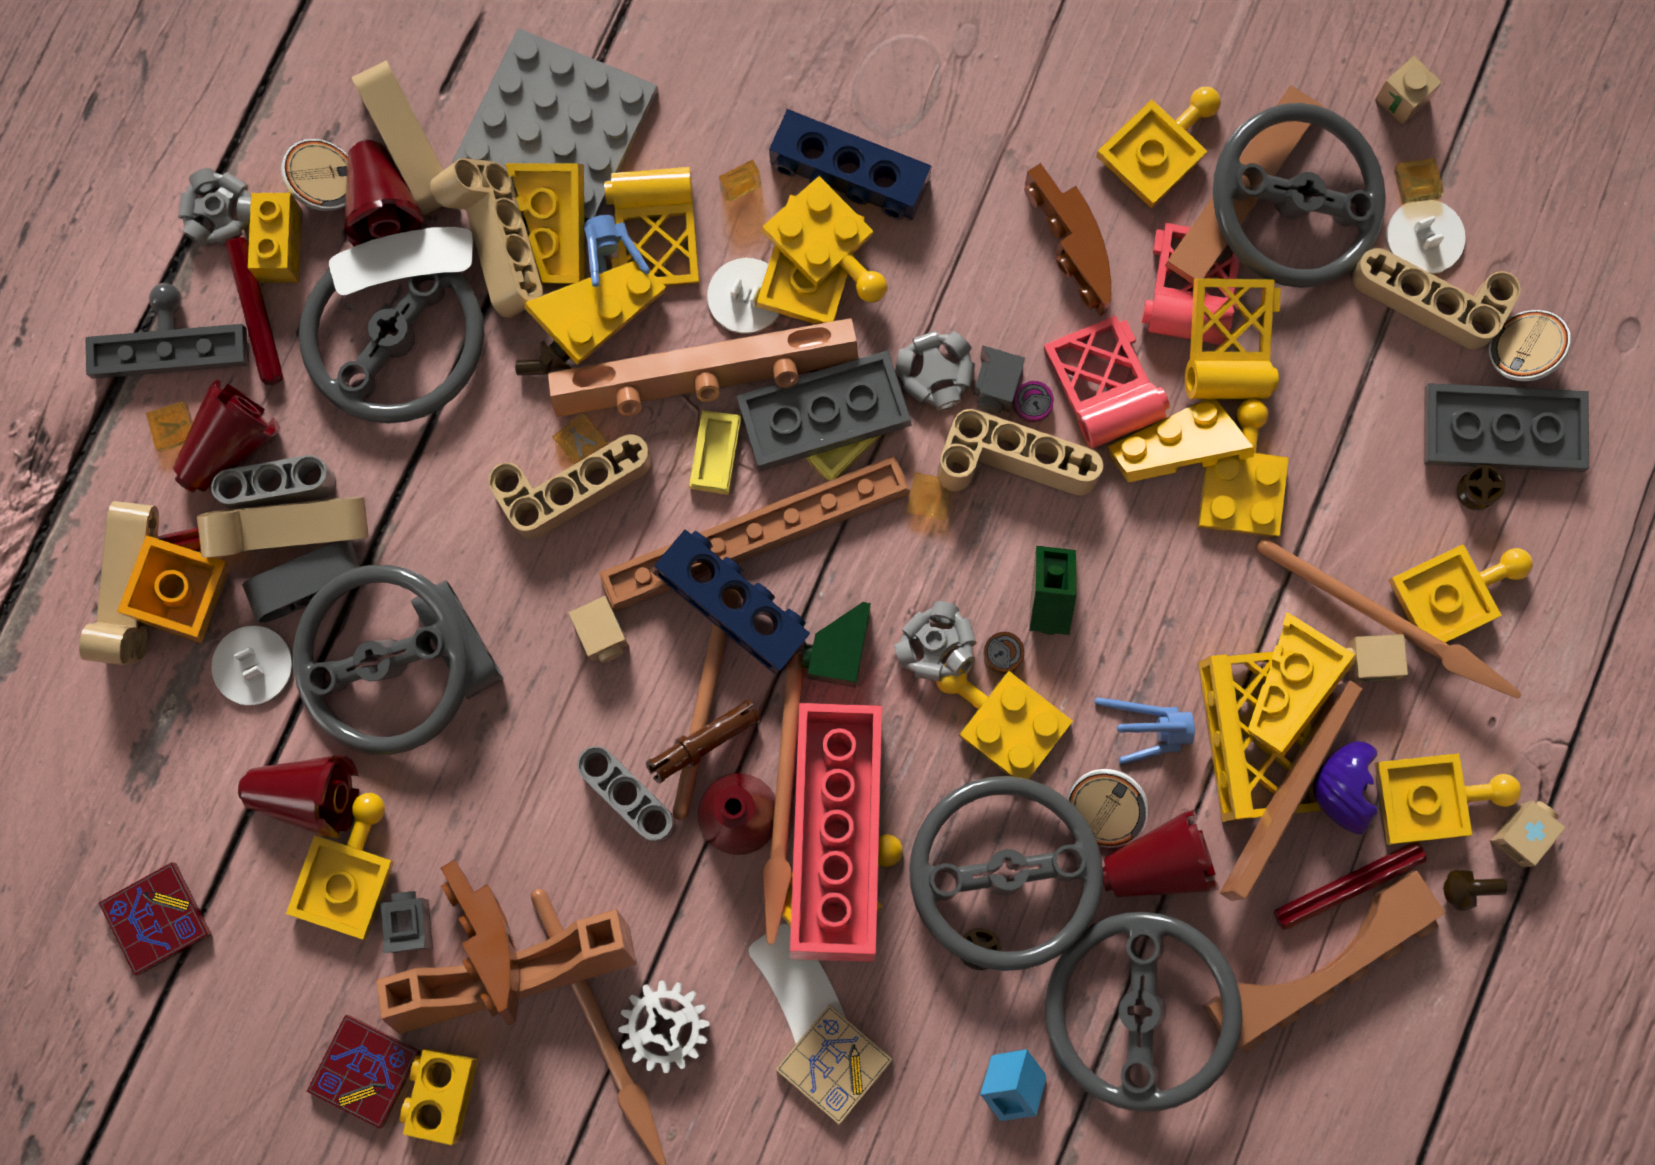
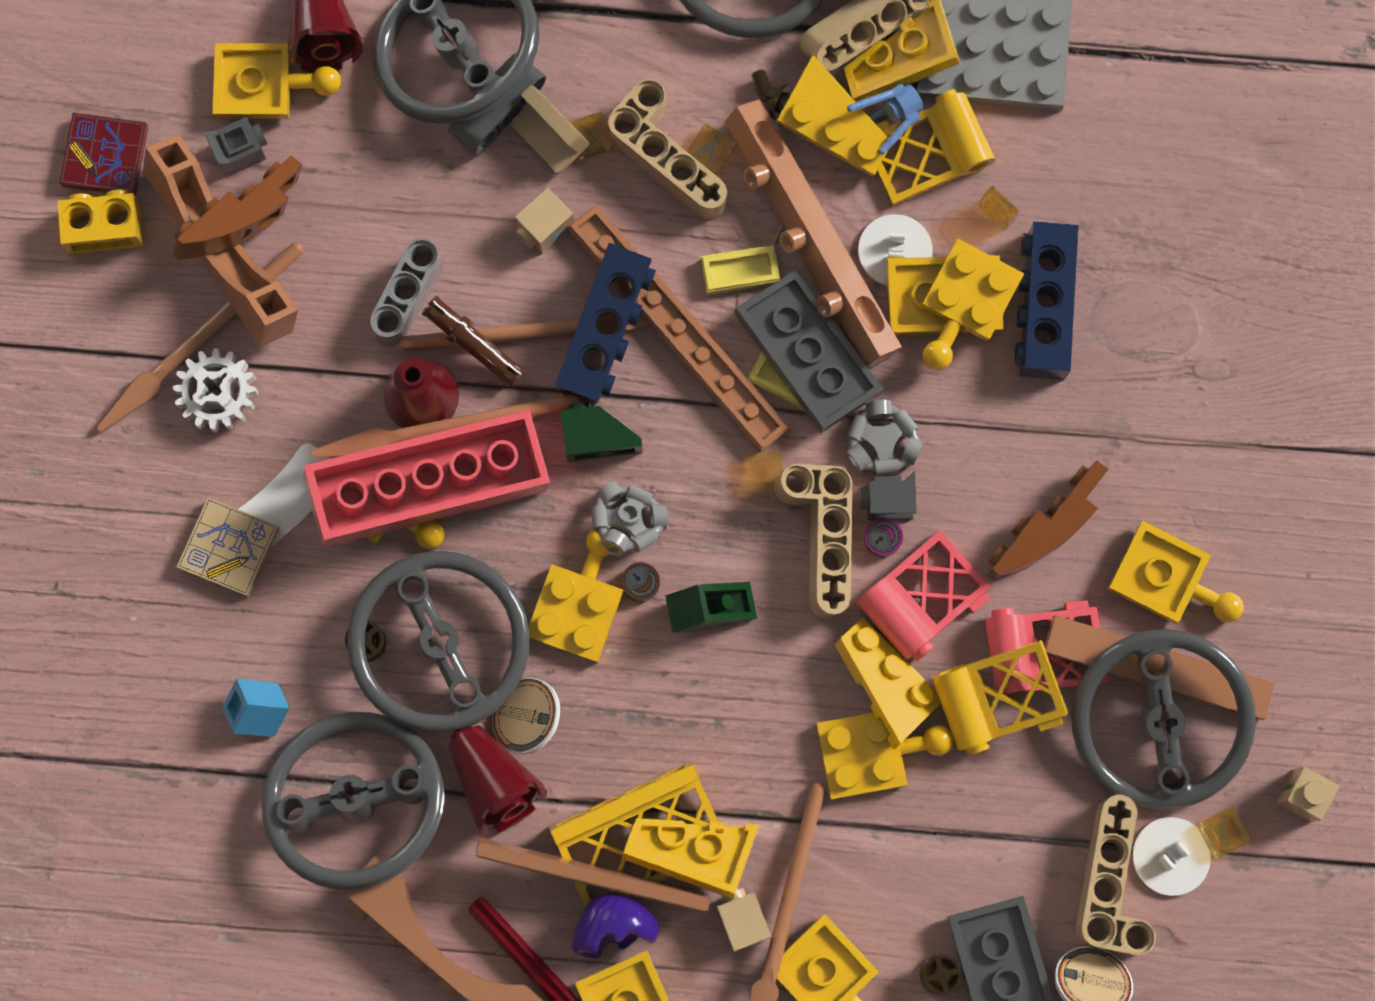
camera: 65 degrees right, 0 degrees up
(505, 596) = (548, 131): none -> tan panel
(522, 557) = (595, 132): none -> clear yellow tile
(1172, 727) = (618, 754): medium blue plant -> none

